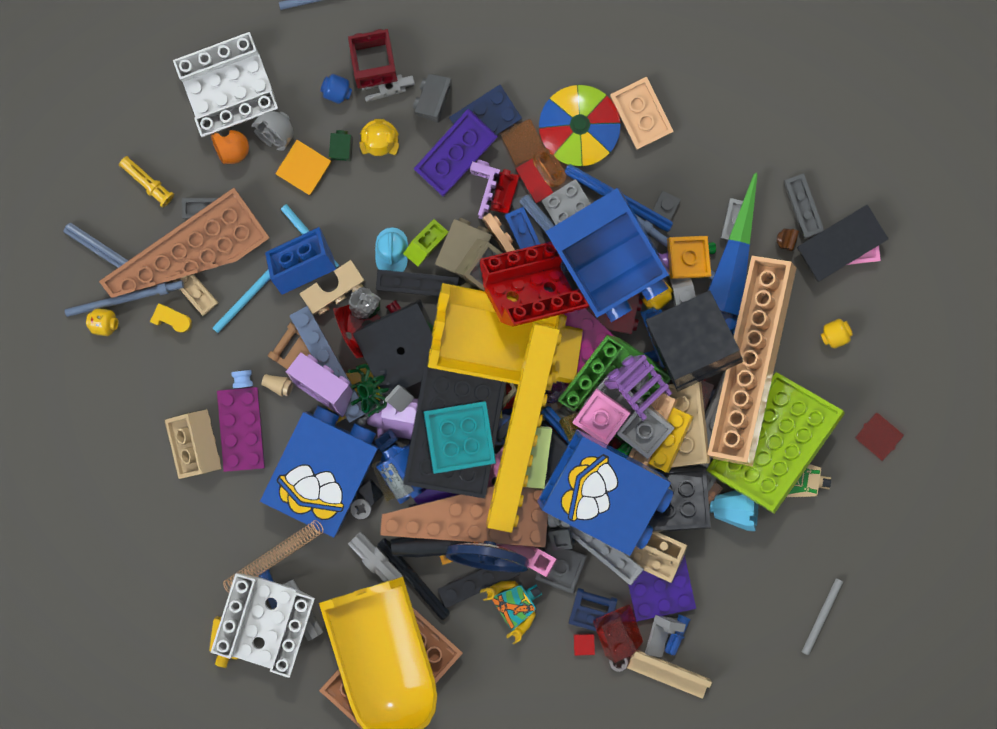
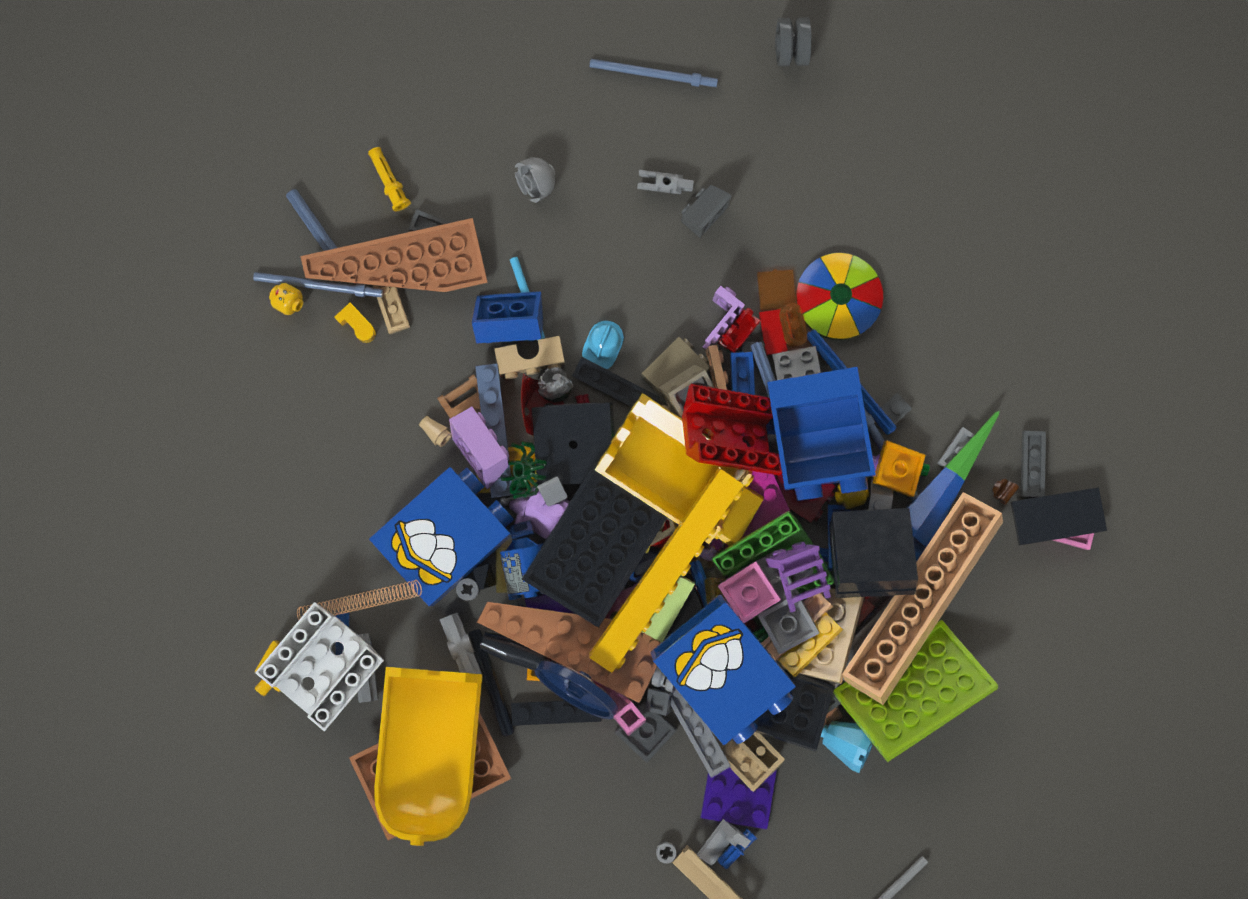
camera: 15 degrees right, 5 degrees down
(193, 444) = (326, 456): tan slope -> none
(226, 84) = (506, 115): white slope -> none
(232, 147) = (485, 179): orange helmet -> none
(241, 429) = (380, 461): magenta plate -> none
(242, 302) = (433, 335): medium azure bar -> none
(242, 379) = (402, 411): light blue wheel -> none
(303, 167) = (549, 228): light orange tile -> none
(336, 88) = (612, 163): blue head -> none
(340, 146) = (594, 221): dark green brick -> none
(376, 75) = (659, 165): dark red window -> none
(379, 138) = (636, 229): yellow helmet -> none
(425, 242) = (640, 349): lime arch -> none
(455, 152) = (705, 272): dark purple tile -> none
(459, 437) = (598, 554): teal plate -> none
(493, 109) = (749, 251): dark blue plate -> none
(514, 604) = (583, 750): torso -> none
(584, 616) = (655, 795): dark blue plate -> none
(584, 644) = (638, 820): red tile -> none
(618, 633) = (678, 823): clear red slope -> none
(641, 113) = (906, 308): light nougat plate -> none
(810, 483) = (934, 746): torso -> none
(836, 333) = (1018, 605): yellow head -> none
(879, 436) = (1021, 727): clear red piece -> none

